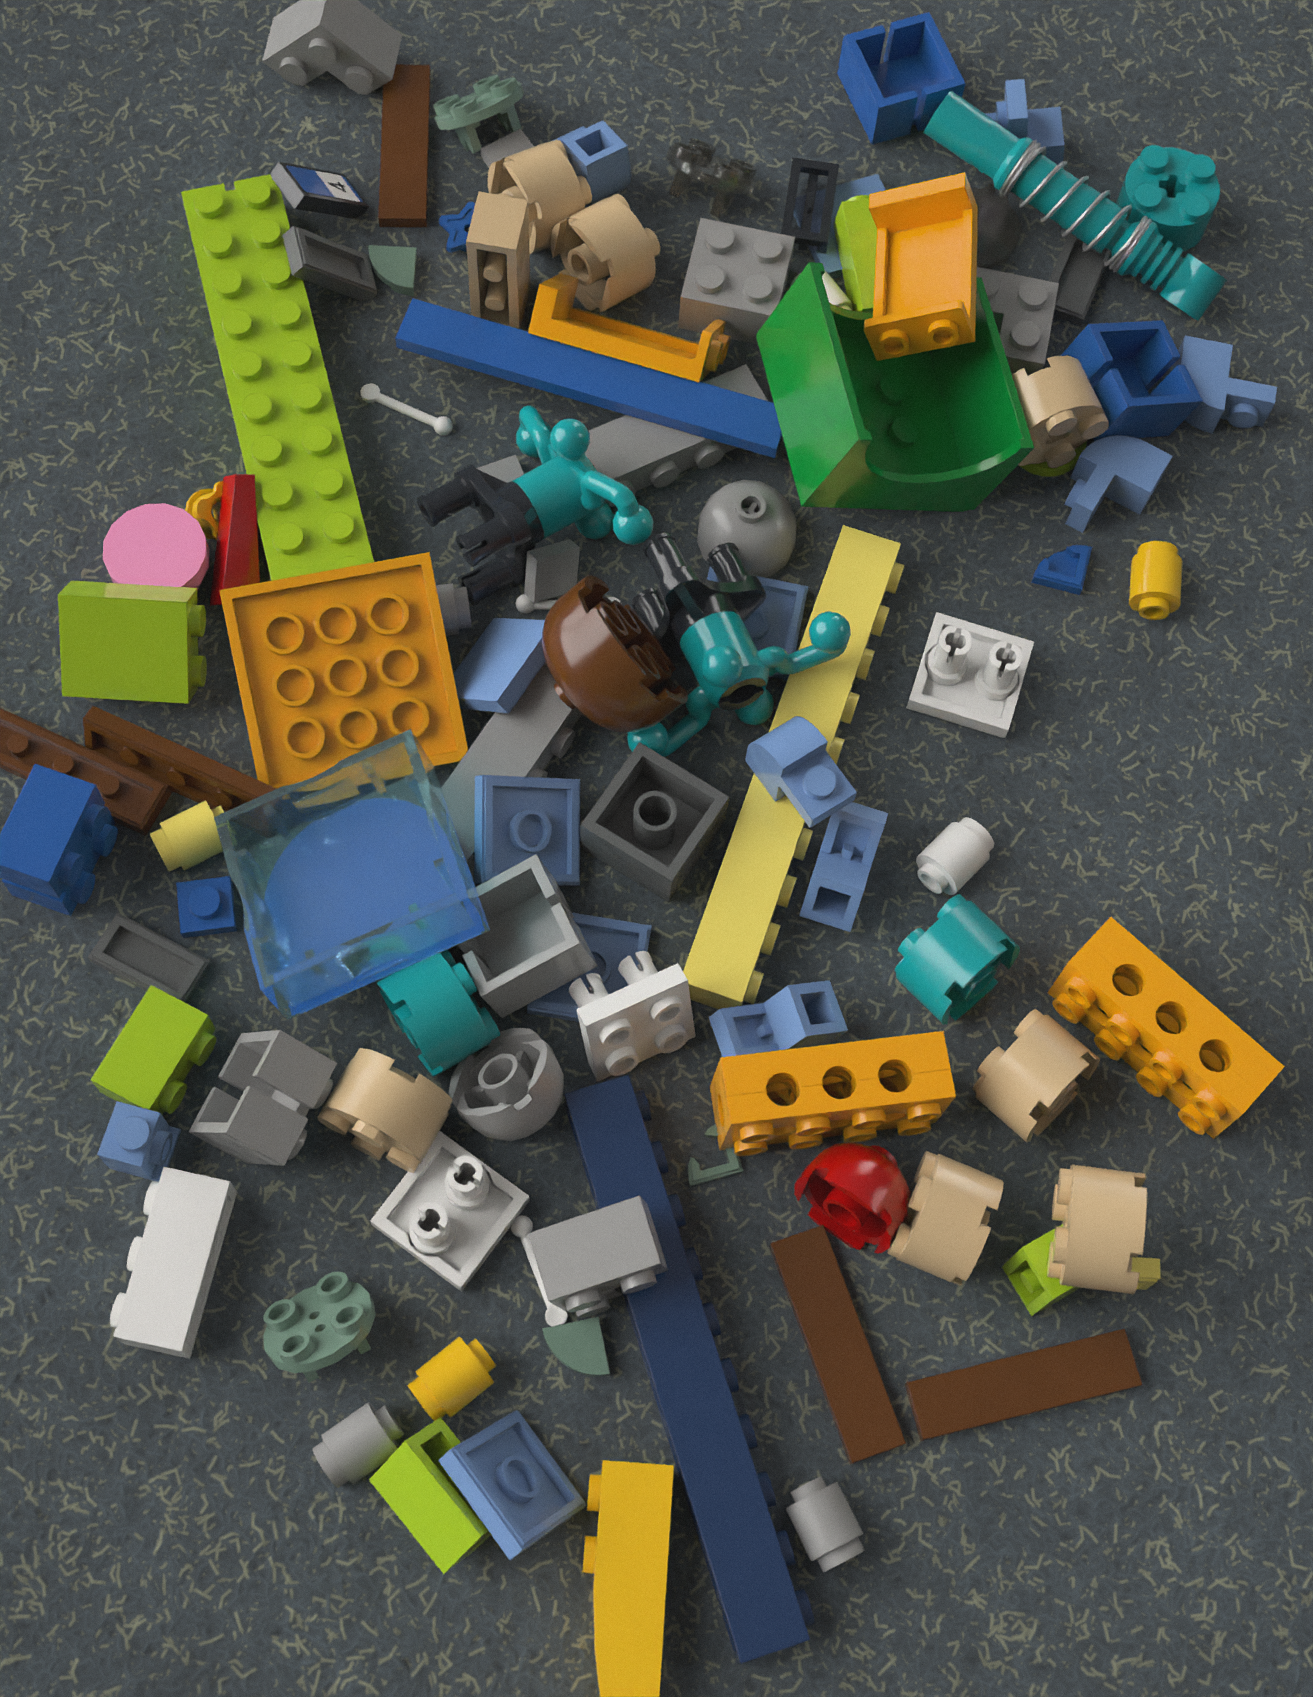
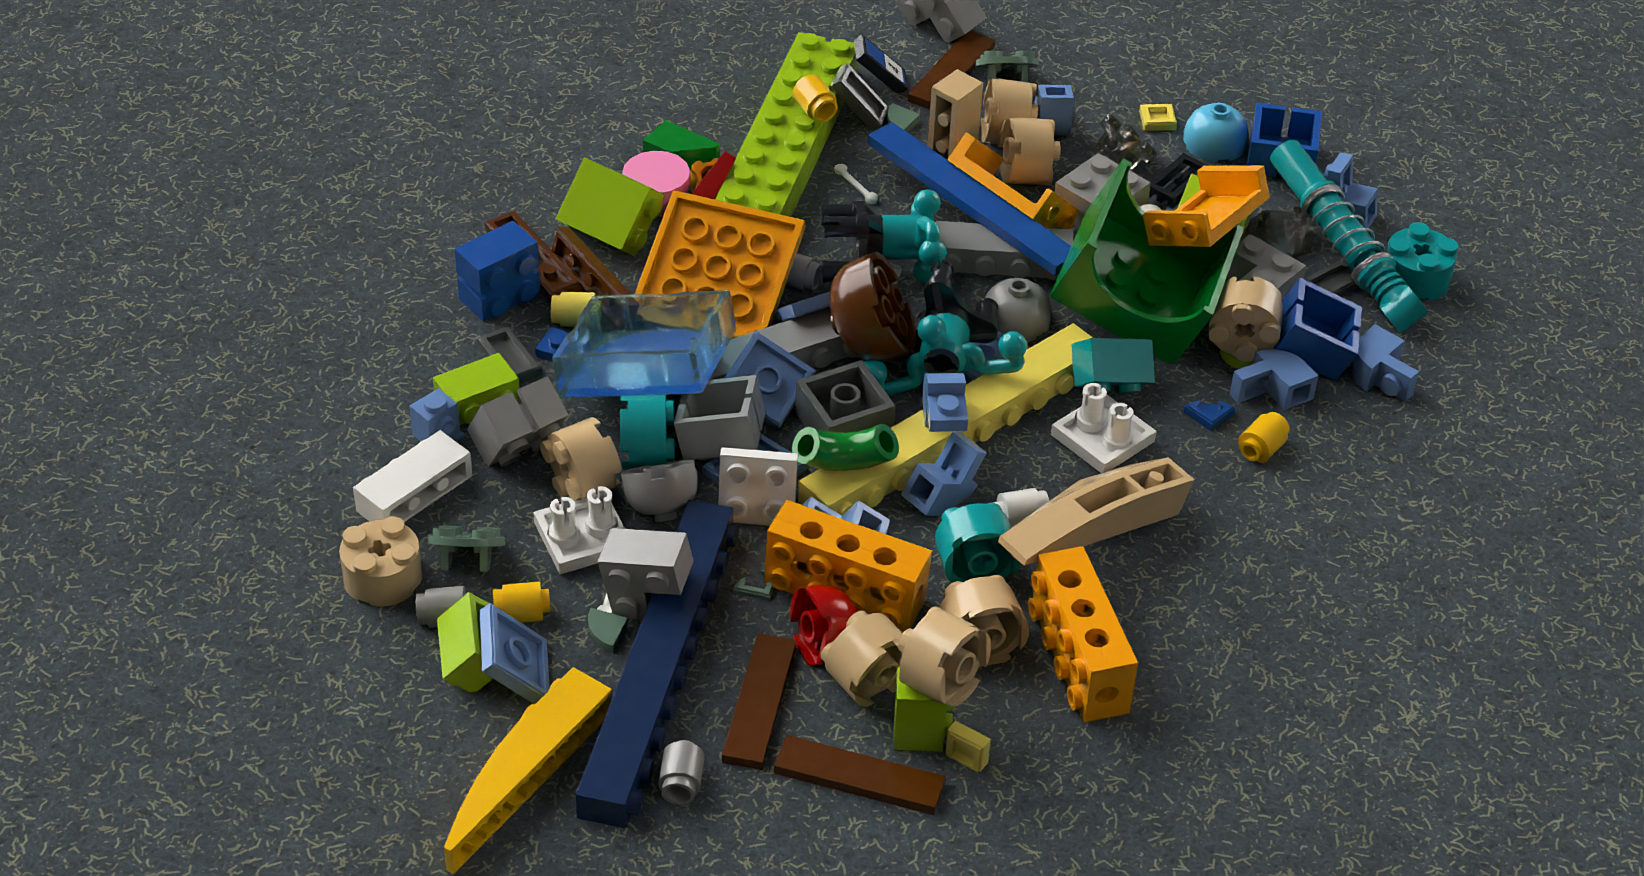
camera: 35 degrees right, 25 degrees down
(145, 474) = (681, 142): none -> green slope
(195, 1429) = (380, 561): none -> tan brick
(297, 316) = (815, 98): none -> yellow brick
(710, 100) = (1158, 117): none -> light yellow tile
(720, 910) = (846, 450): none -> green cylinder
(802, 98) = (1216, 133): none -> medium azure cylinder
(931, 568) = (1113, 363): none -> teal brick
(1058, 823) = (1101, 509): none -> tan wedge

